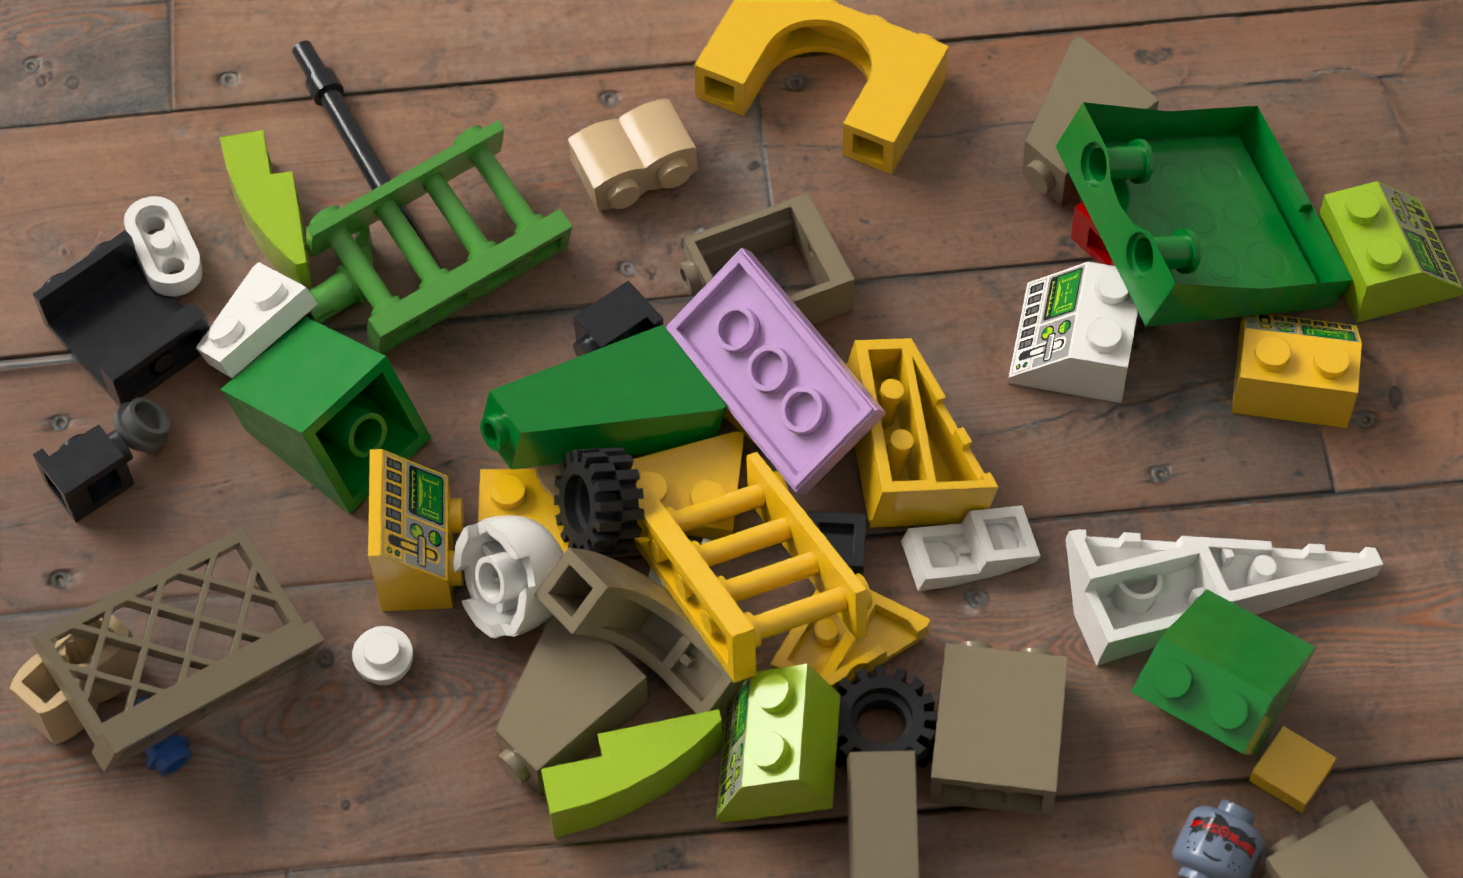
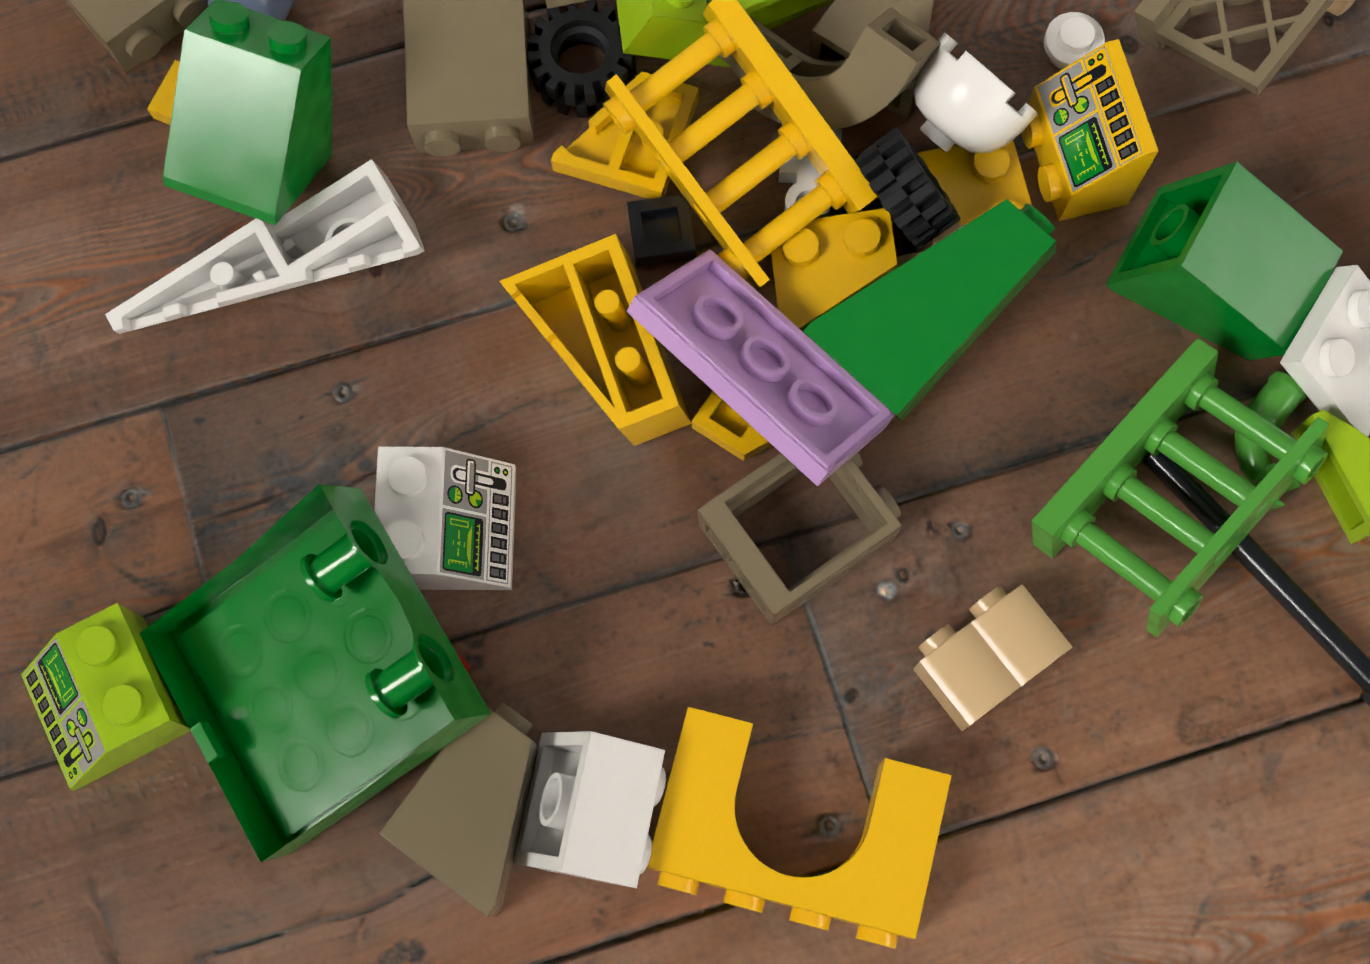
camera: 170 degrees right, 15 degrees up
(613, 319) = (944, 421): black brick -> none
(976, 549) = (509, 255): white slope -> none
(986, 94) = (591, 807): none -> white slope
(1297, 369) = (191, 521): yellow slope -> none

